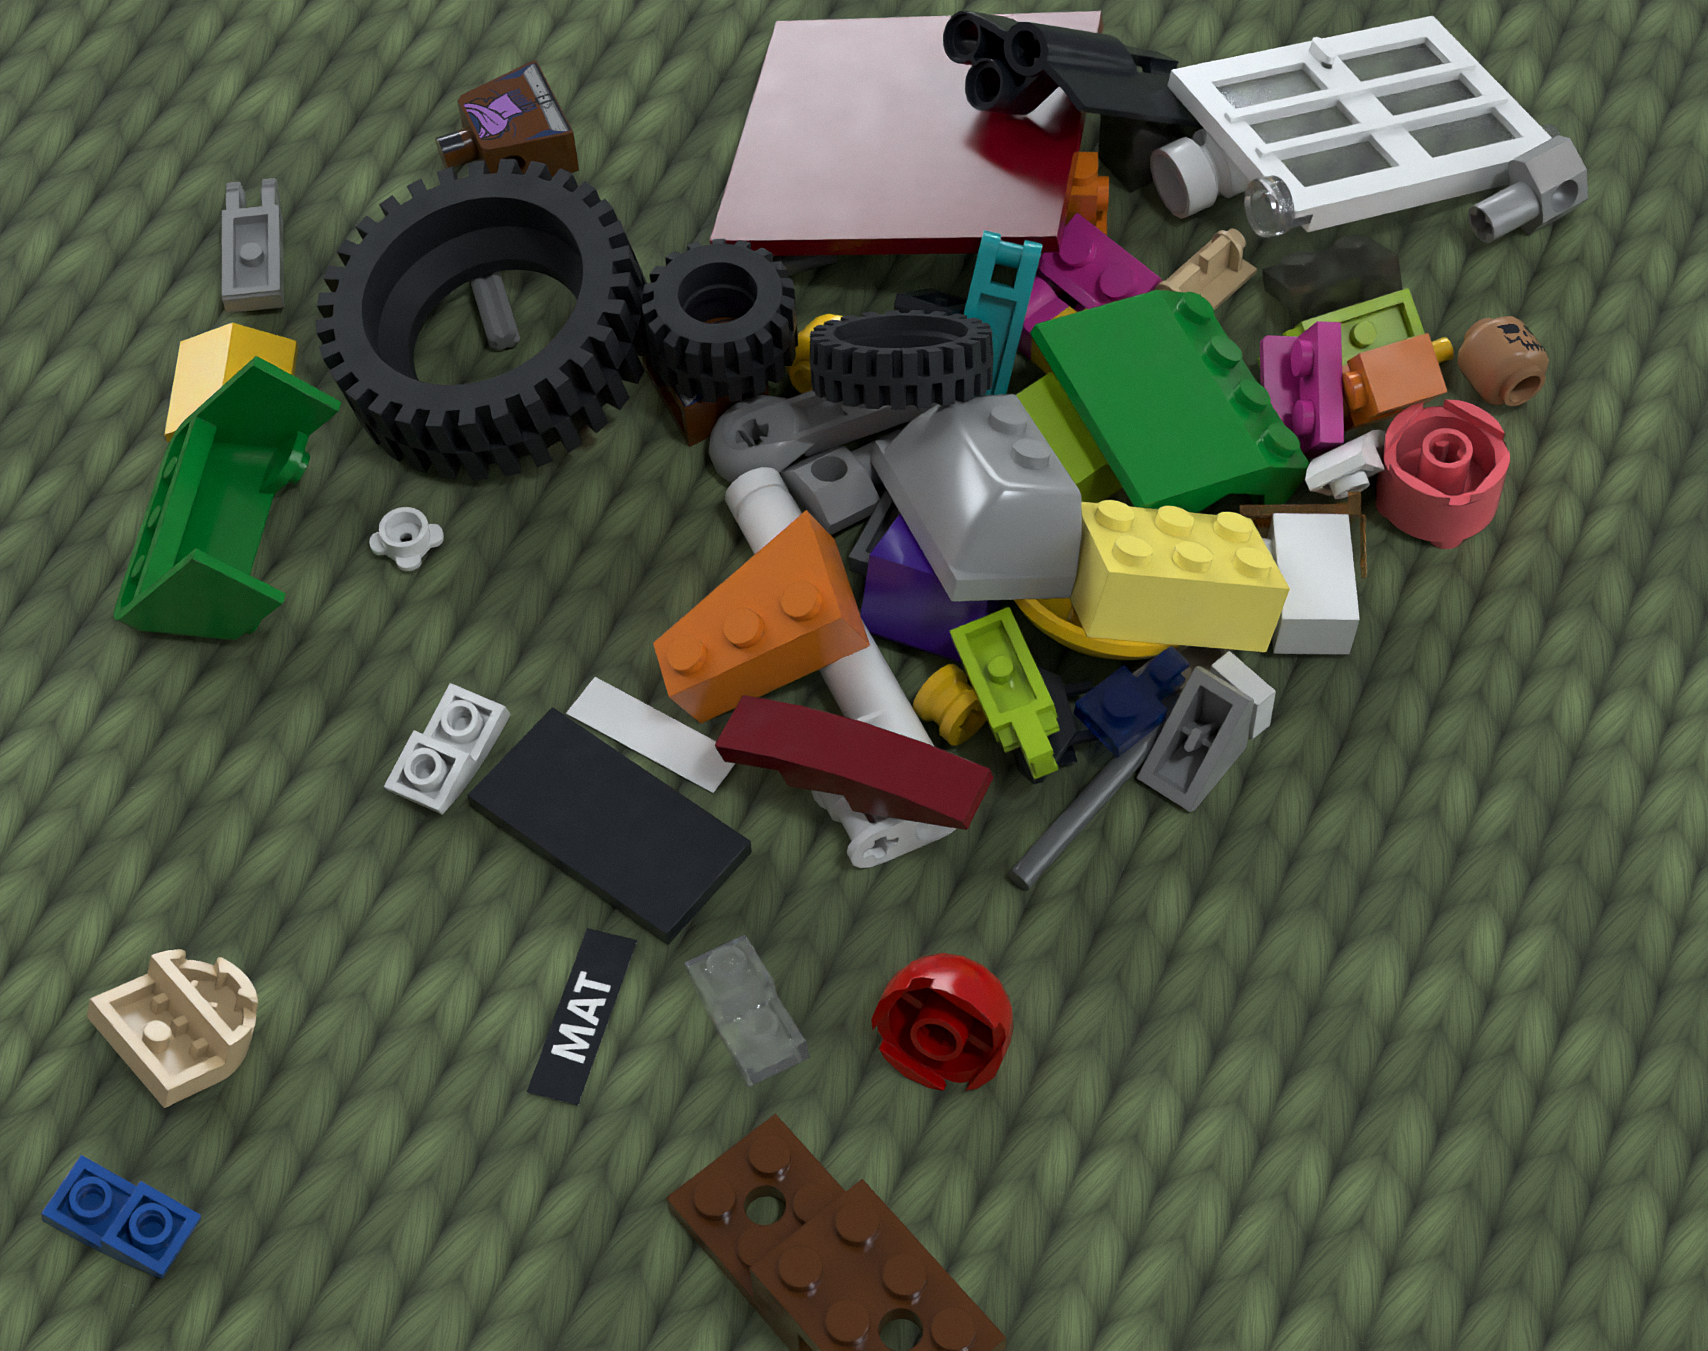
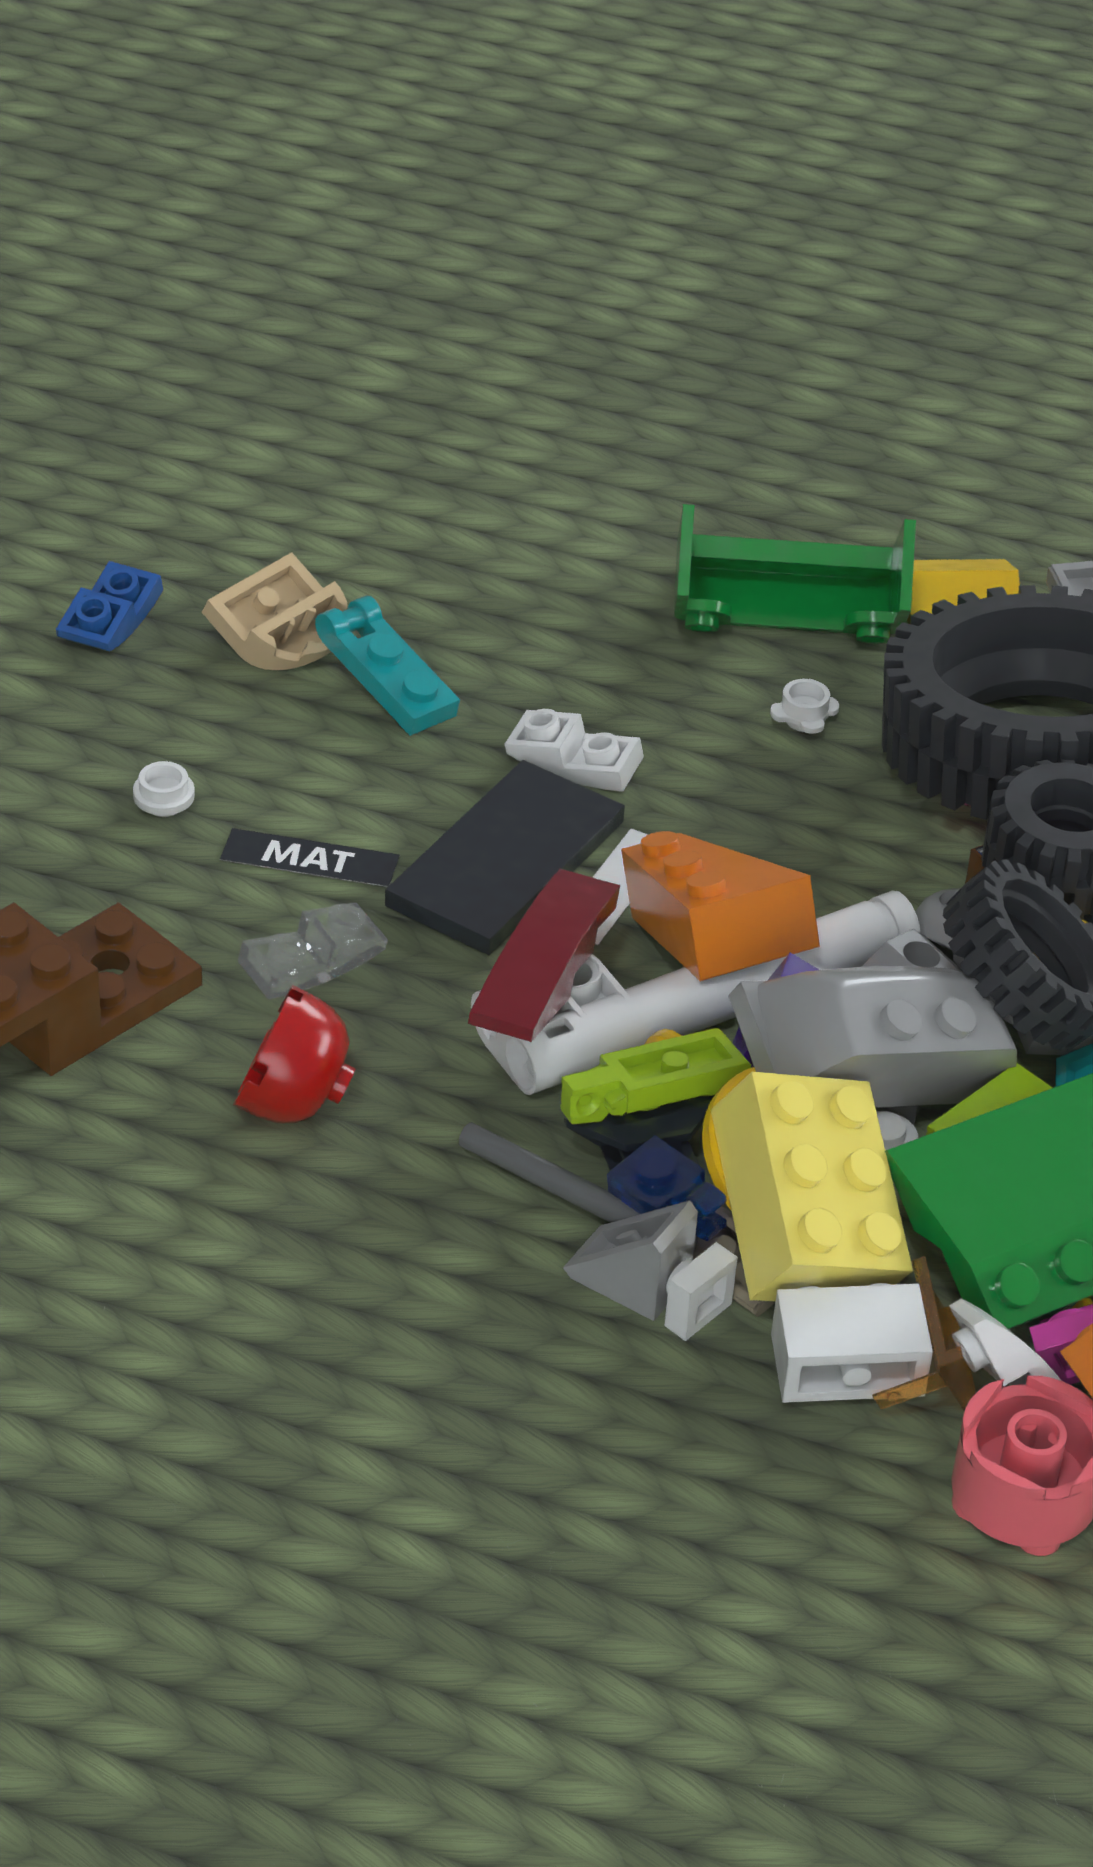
camera: 80 degrees right, 15 degrees down
(291, 917) = (386, 665): none -> teal plate
(473, 1155) = (163, 789): none -> white plate

